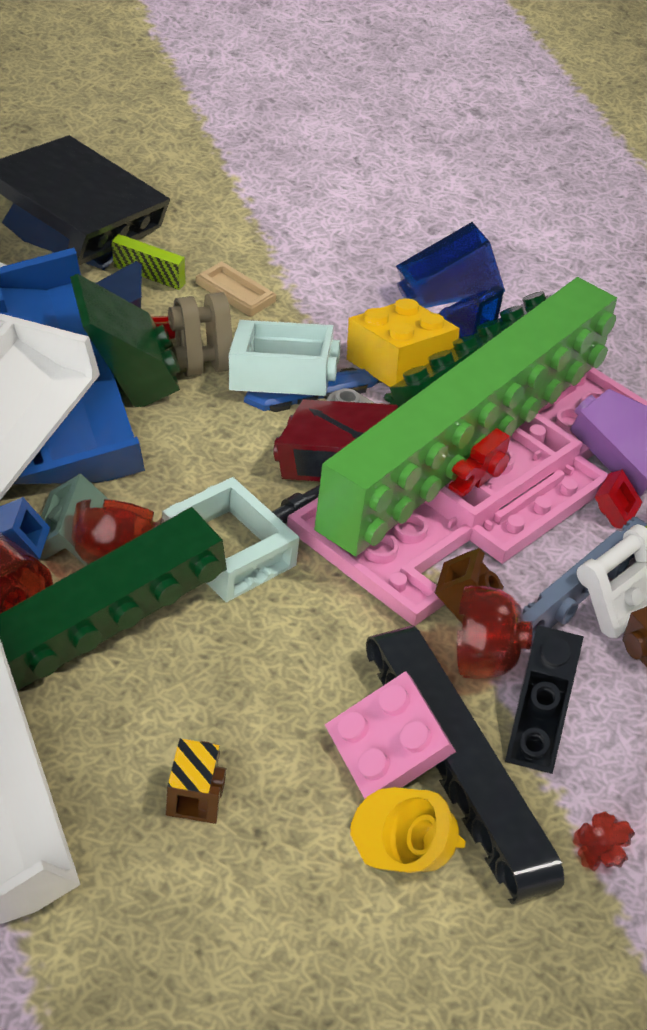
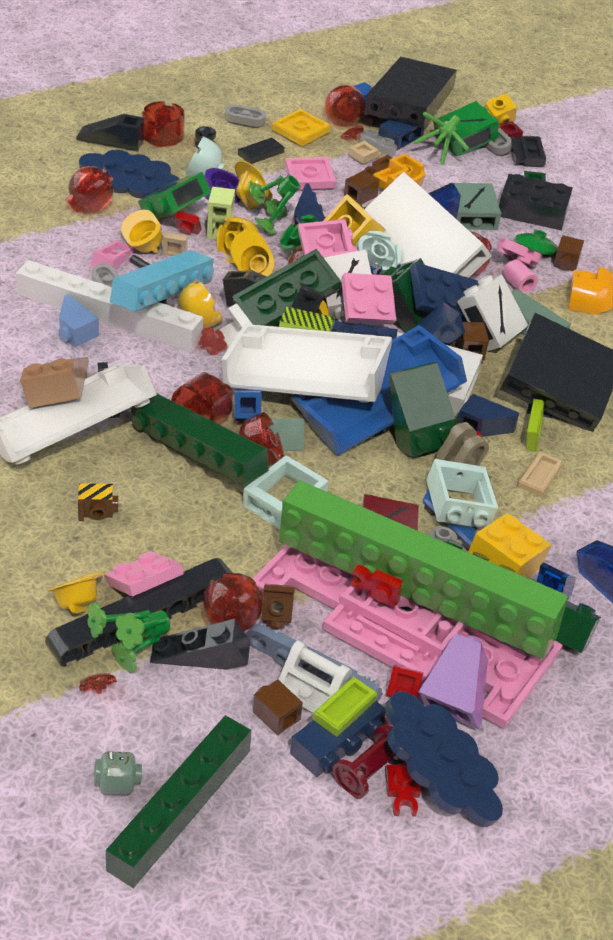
camera: 80 degrees right, 0 degrees up
(540, 793) = (130, 631): none -> bright green plant

